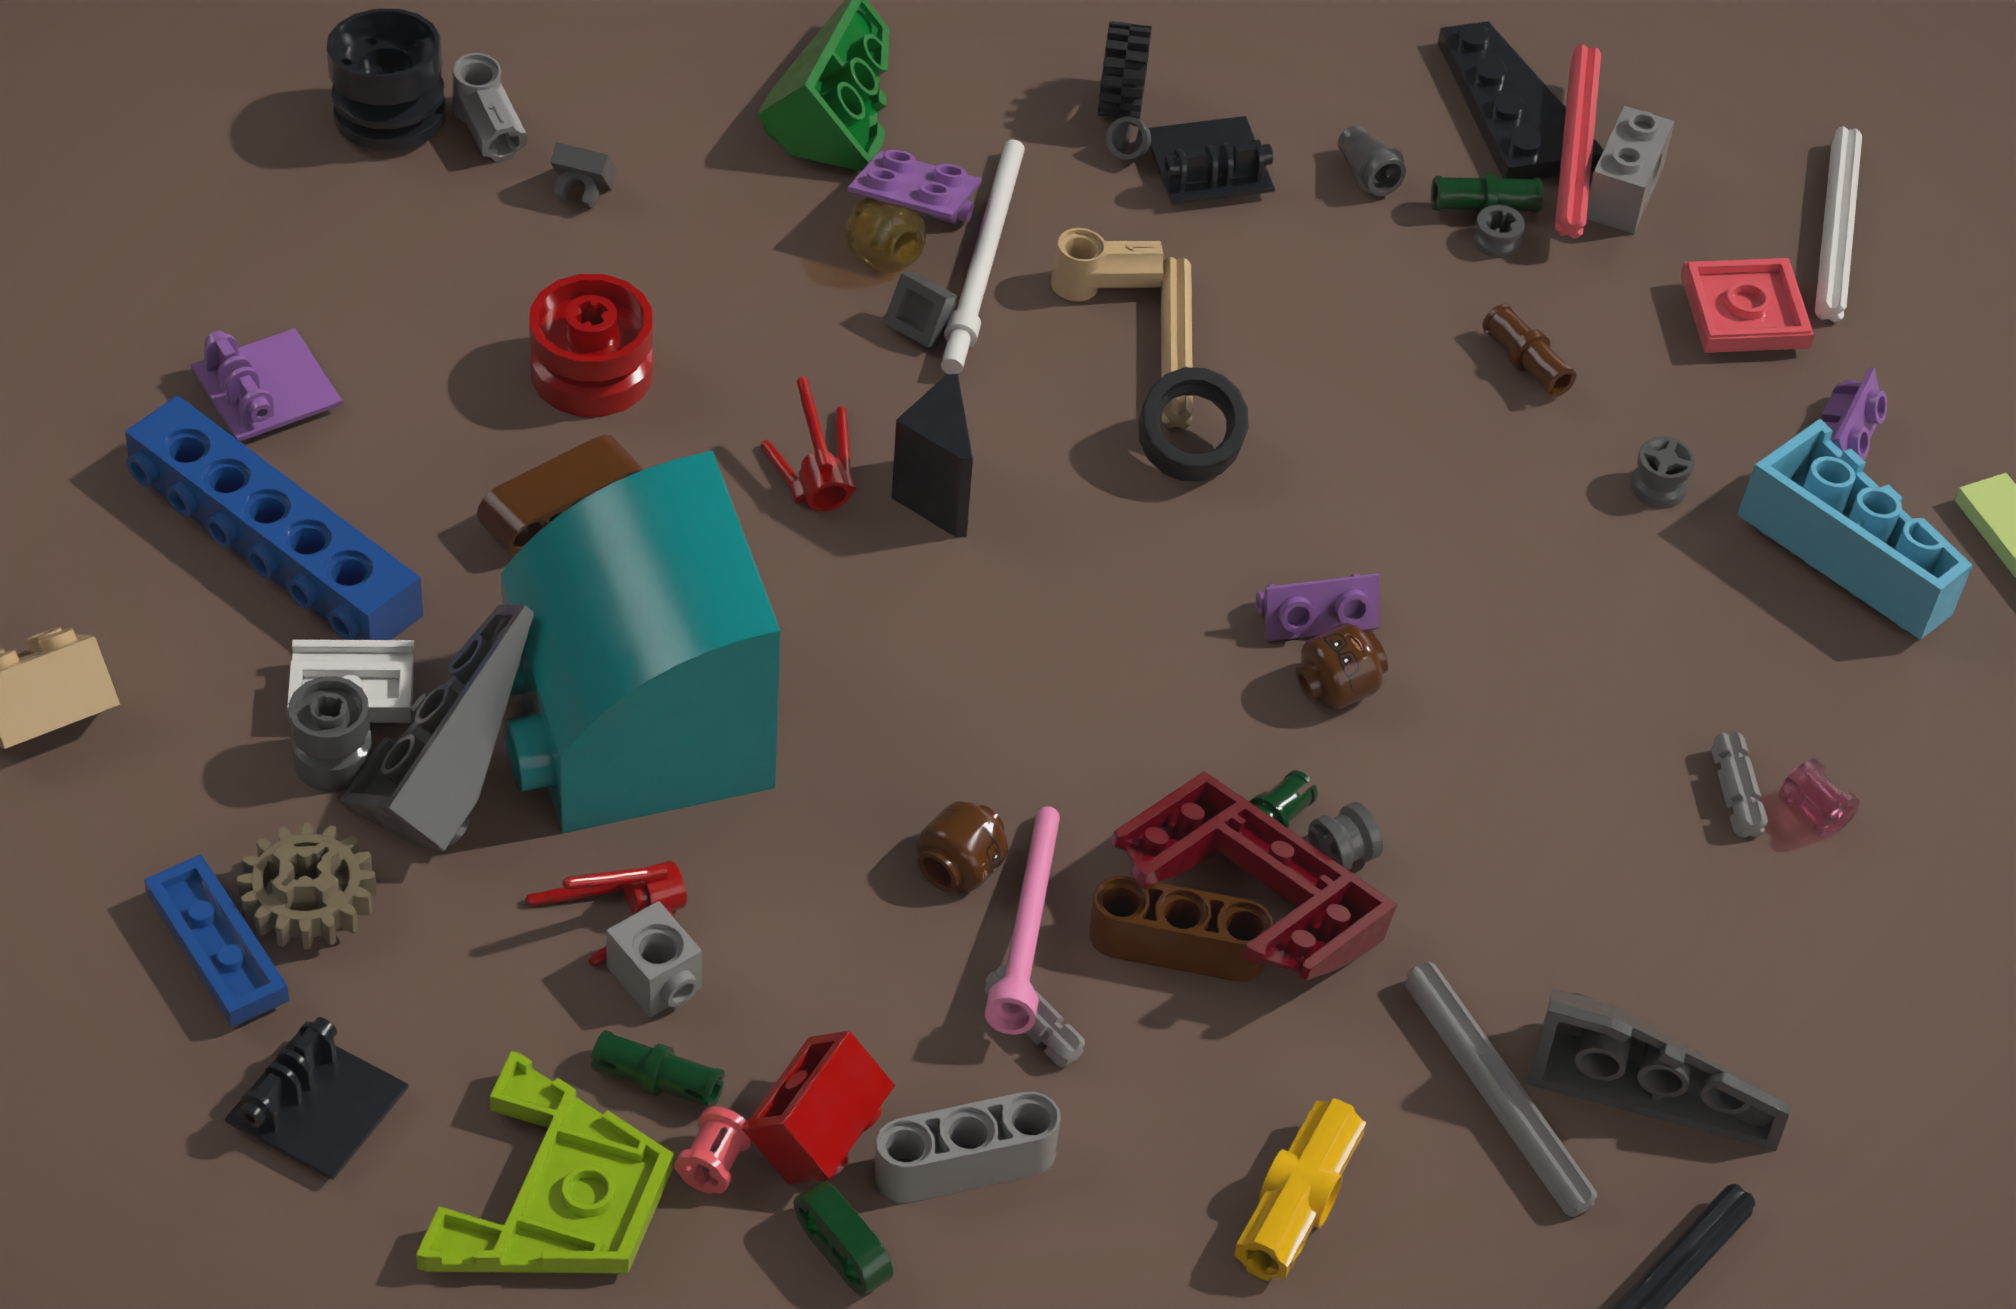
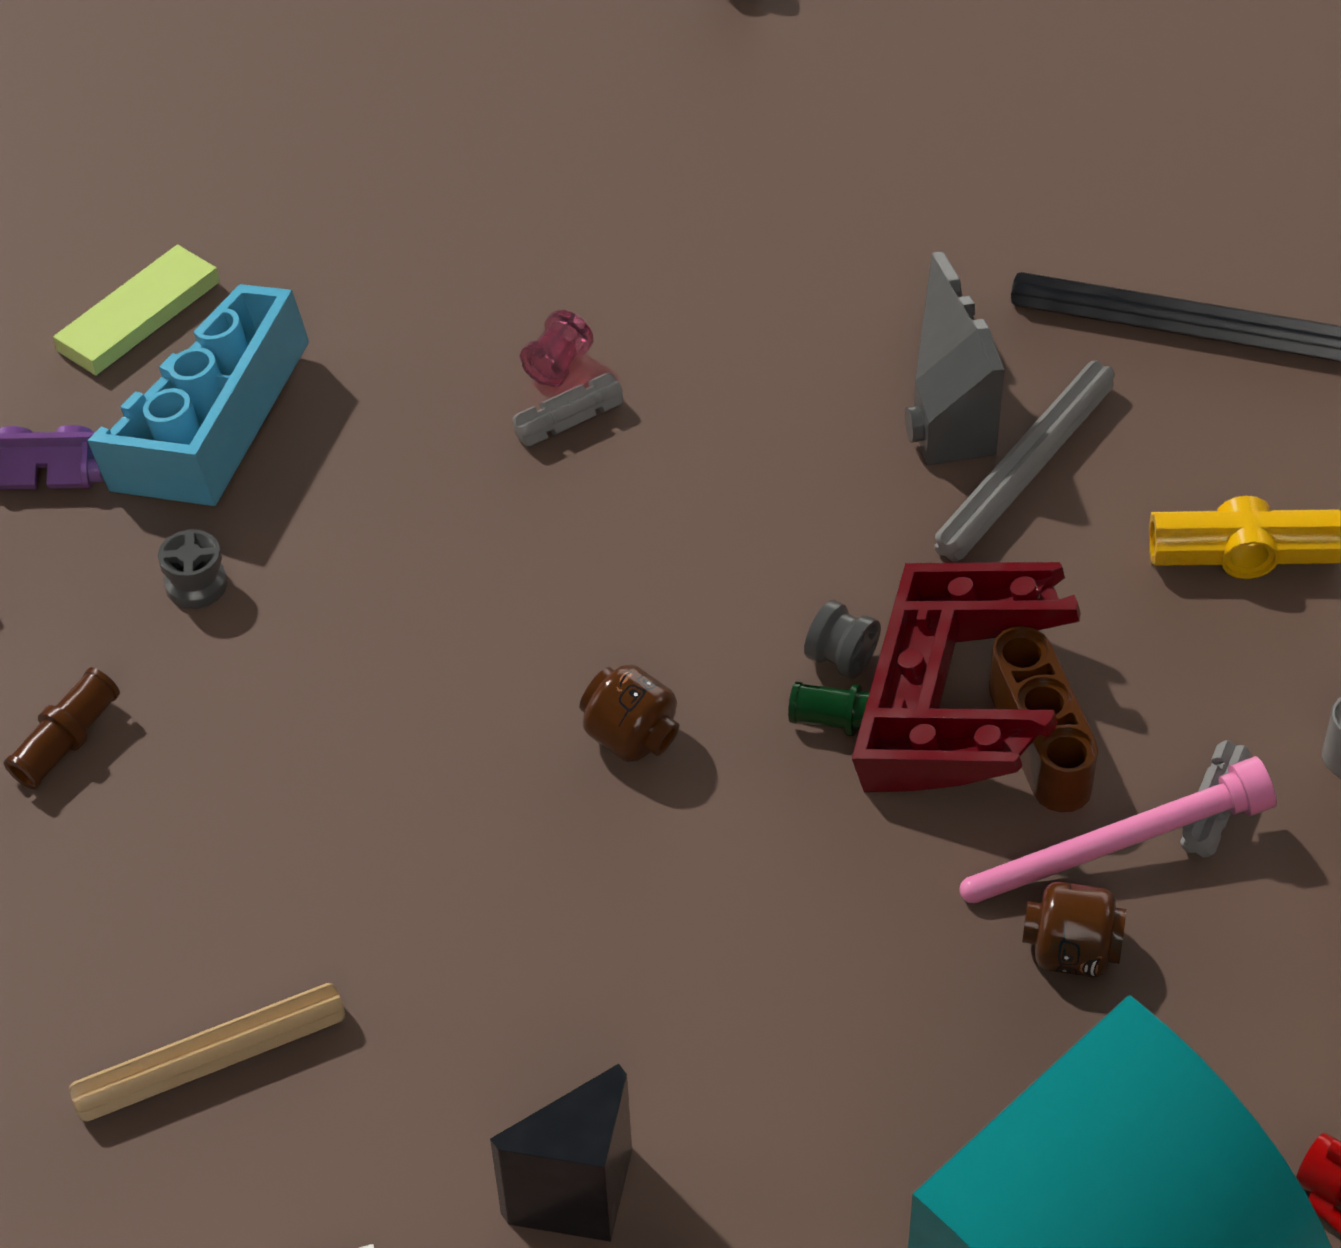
camera: 110 degrees left, 0 degrees up
(1089, 263) = (122, 1161): tan piece -> none
(1210, 386) = (346, 989): black tyre -> none
(1319, 606) = (561, 789): medium lavender hinge -> none

